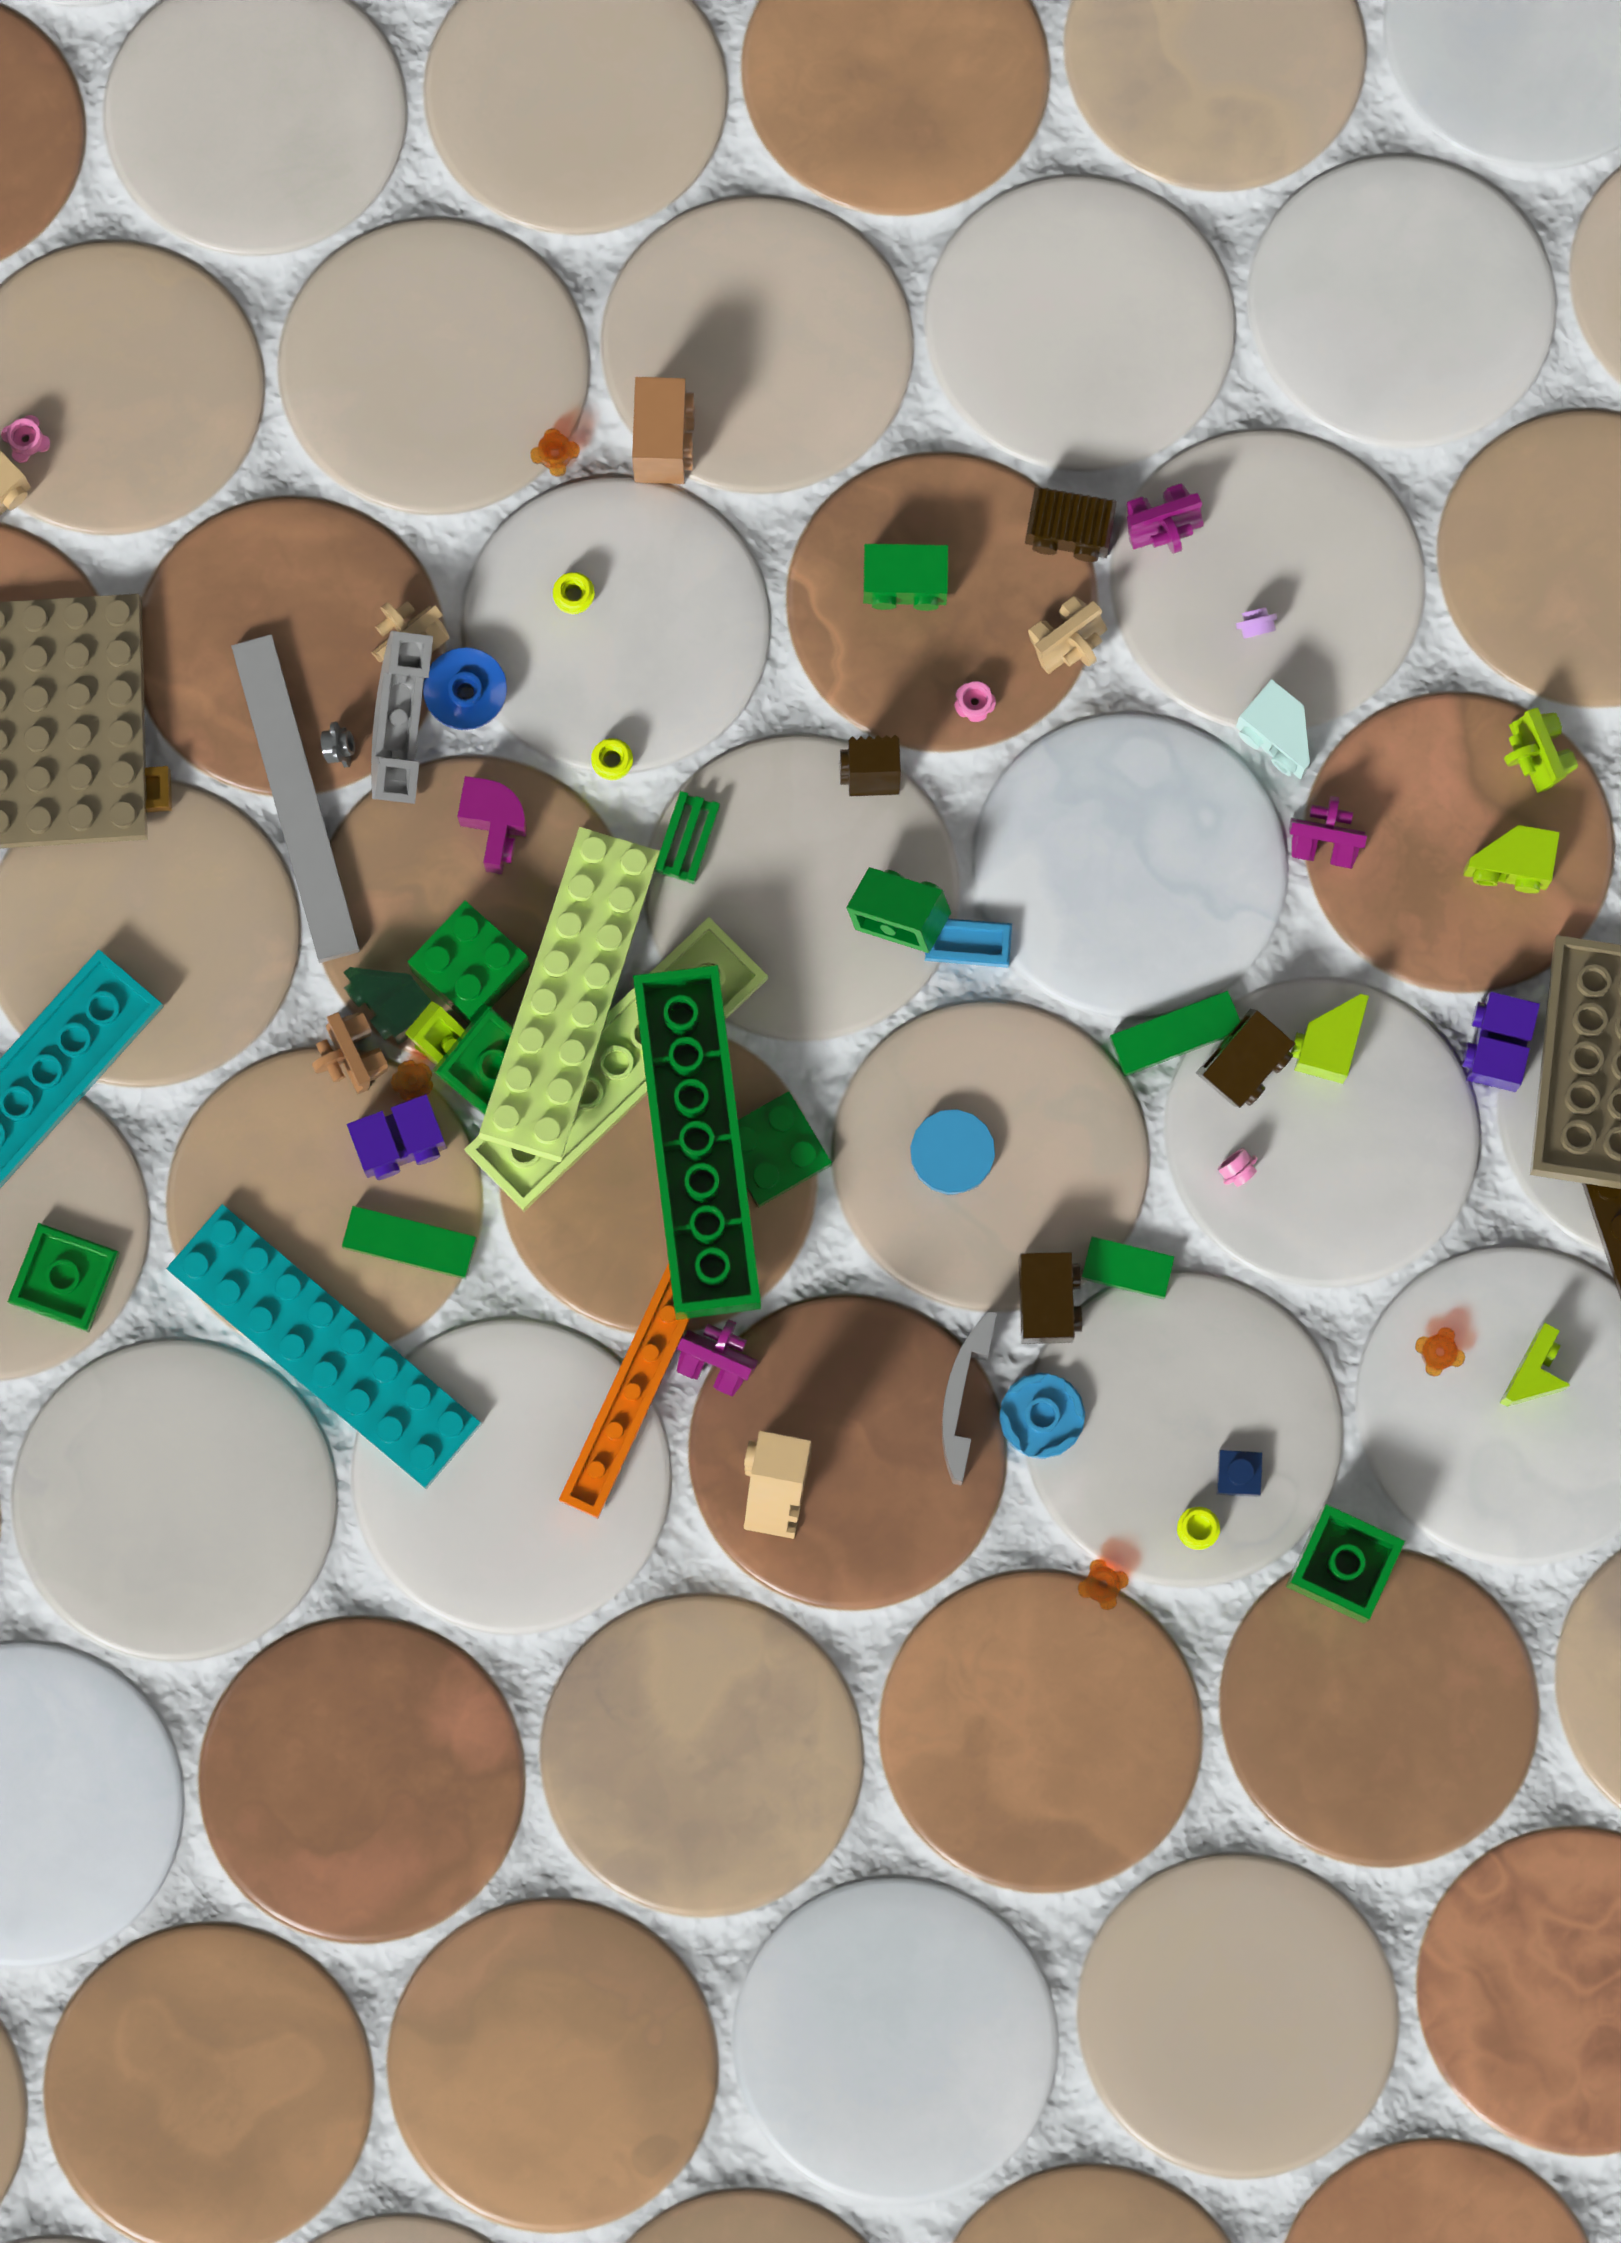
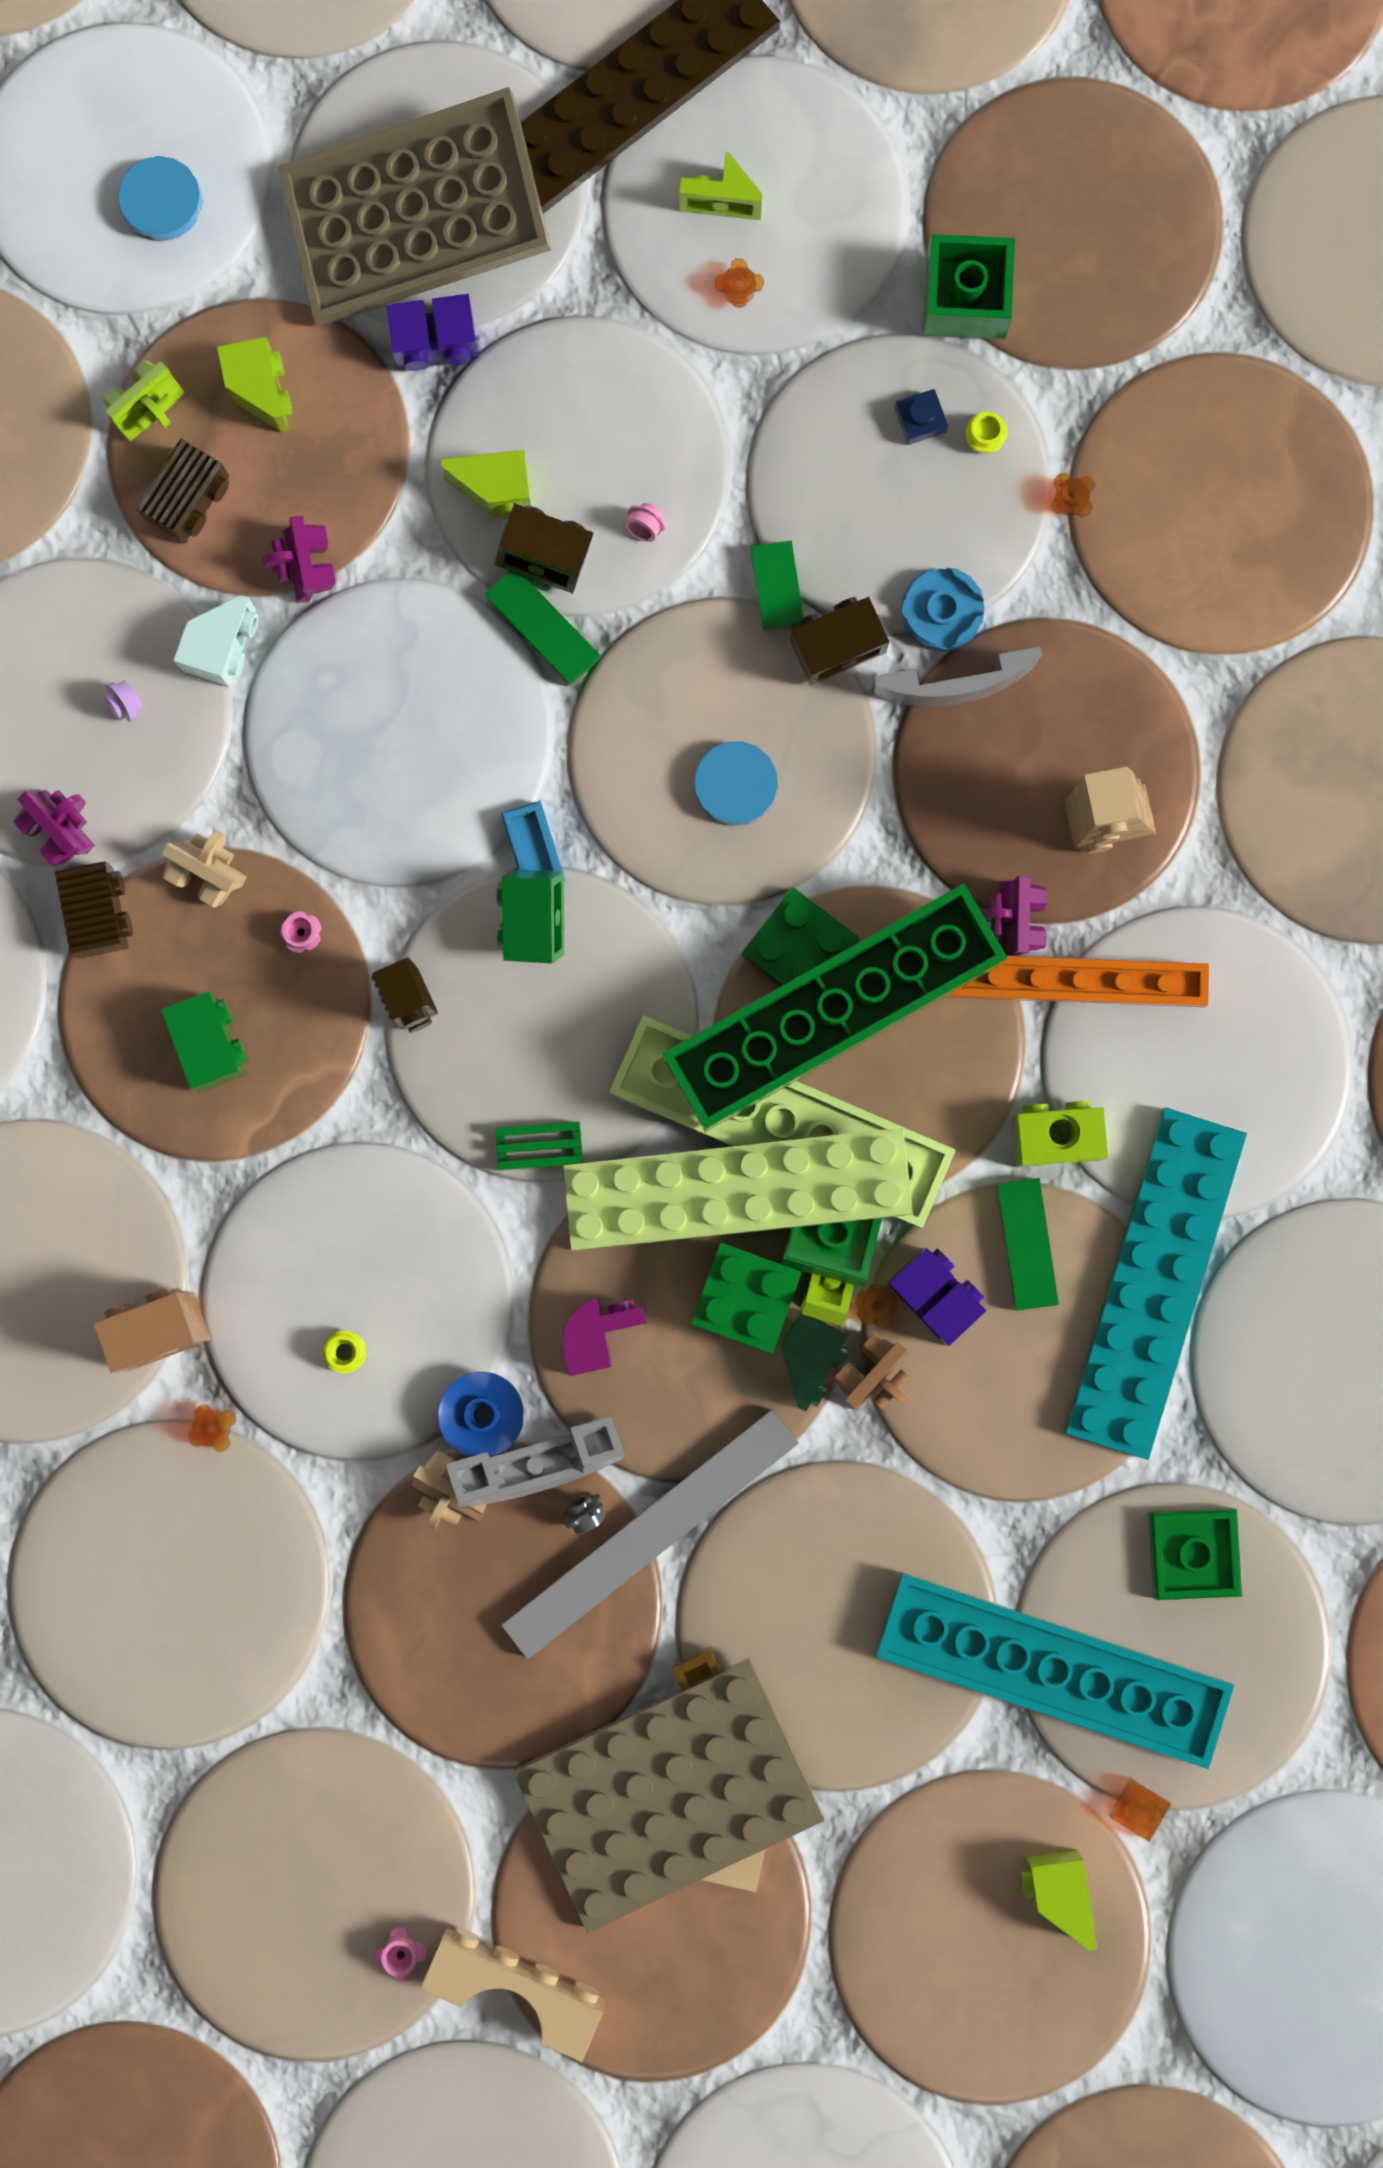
camera: 110 degrees left, 5 degrees up
(493, 1285) = (1086, 1138): none -> lime brick
(608, 747) = (478, 1247): neon yellow plate -> none
(1435, 752) = (183, 492): none -> dark brown brick

